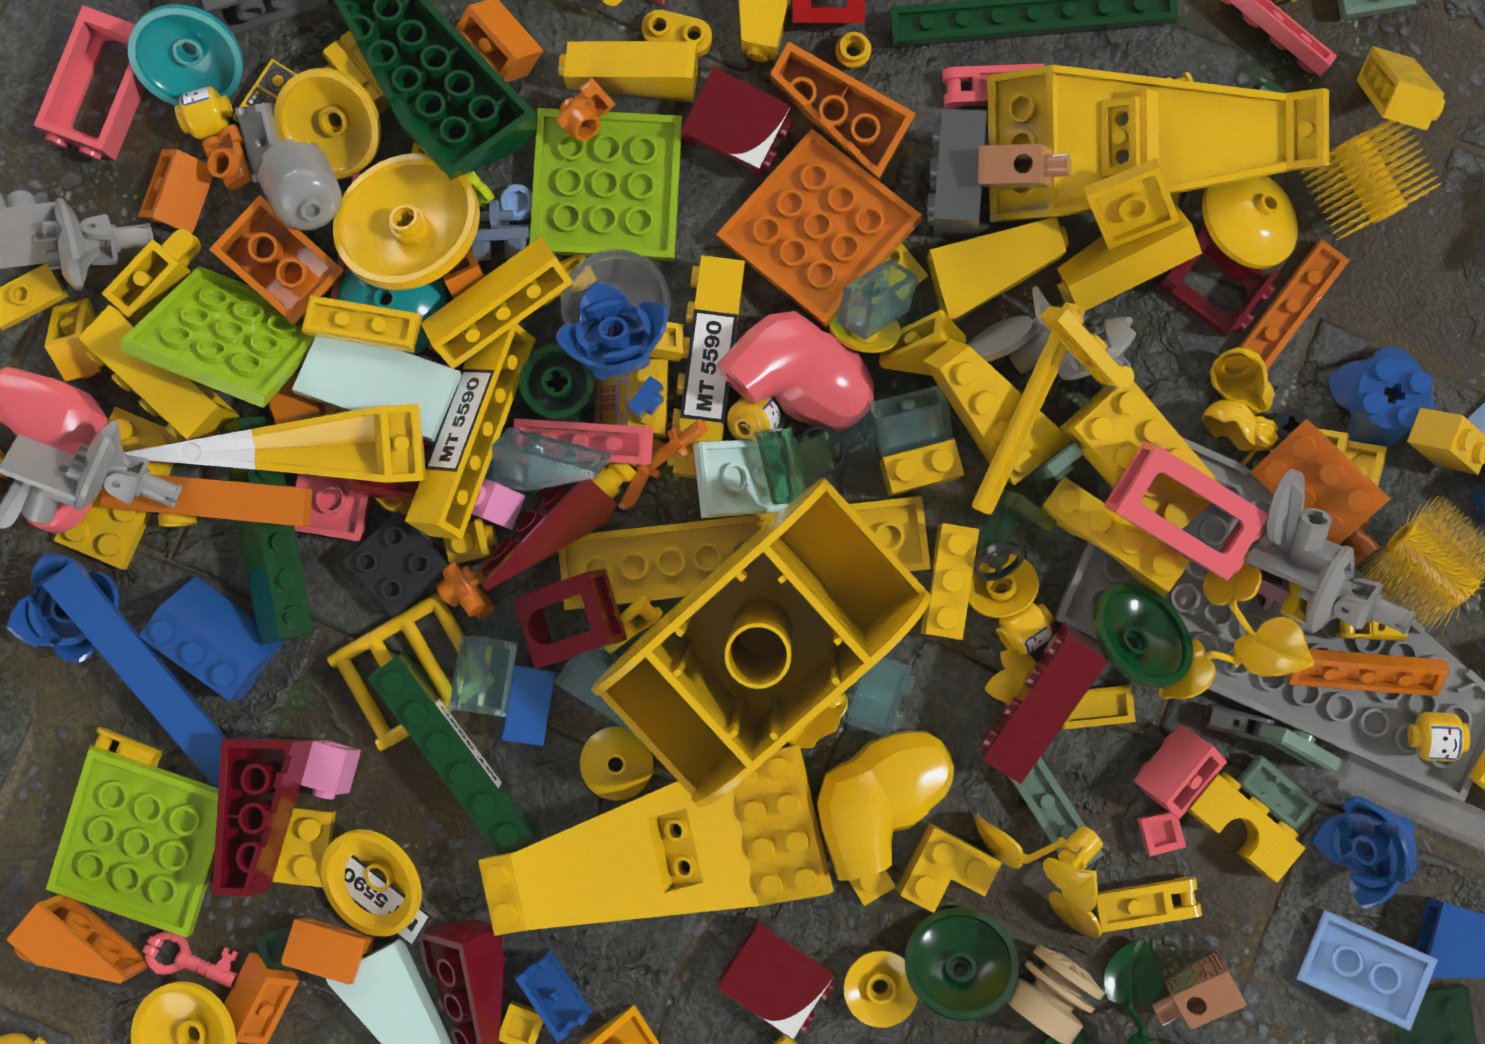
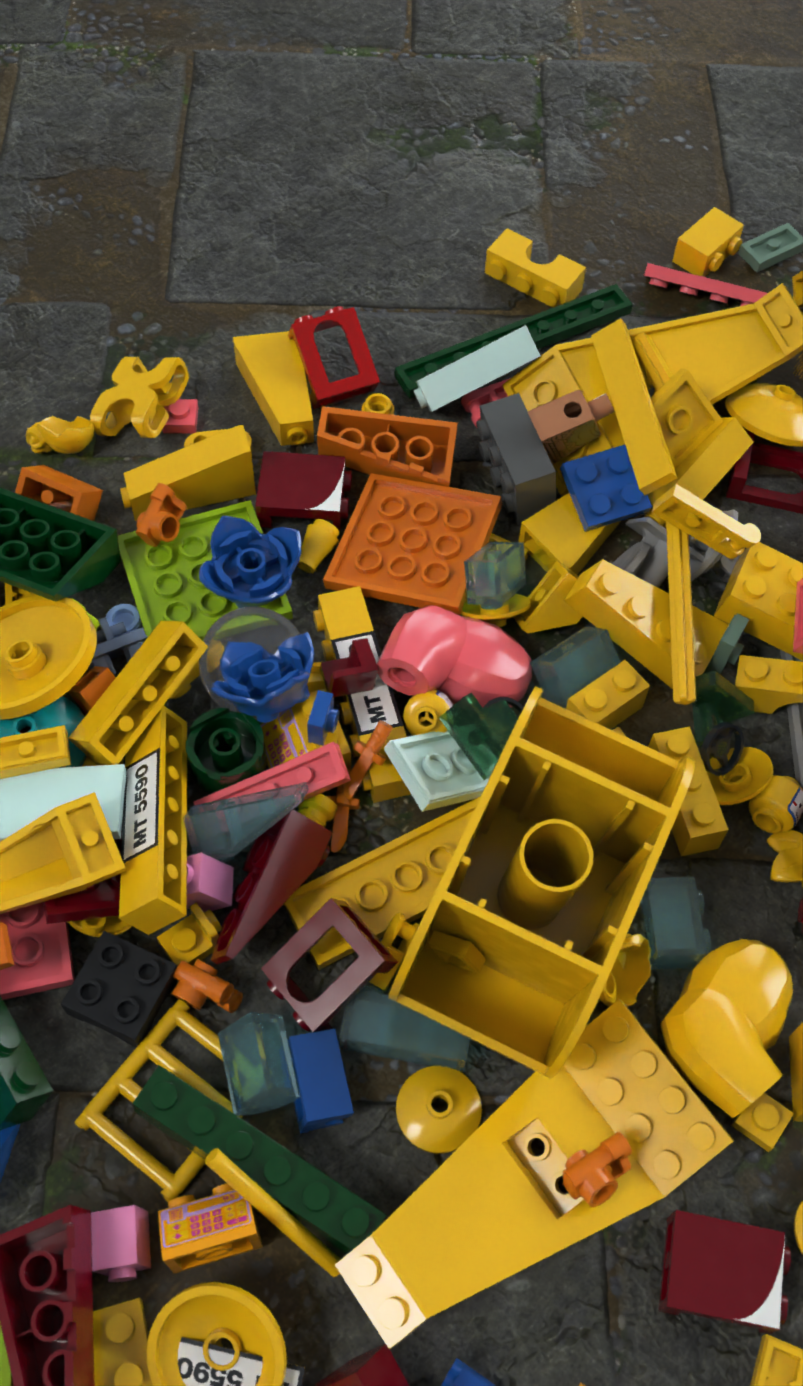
camera: 20 degrees left, 25 degrees down
(397, 787) = (207, 1229): none -> light orange slope
(448, 800) = (273, 1211): none -> yellow bar
(643, 175) = (240, 546): none -> blue brick
(694, 354) = (352, 673): none -> dark red panel
(703, 872) = (595, 1172): none -> orange plate
(727, 190) = (317, 544): none -> yellow cone
(969, 48) = (476, 369): none -> light aqua slope
(1026, 248) = (604, 488): none -> blue plate
(1087, 179) = (633, 408): none -> yellow tile

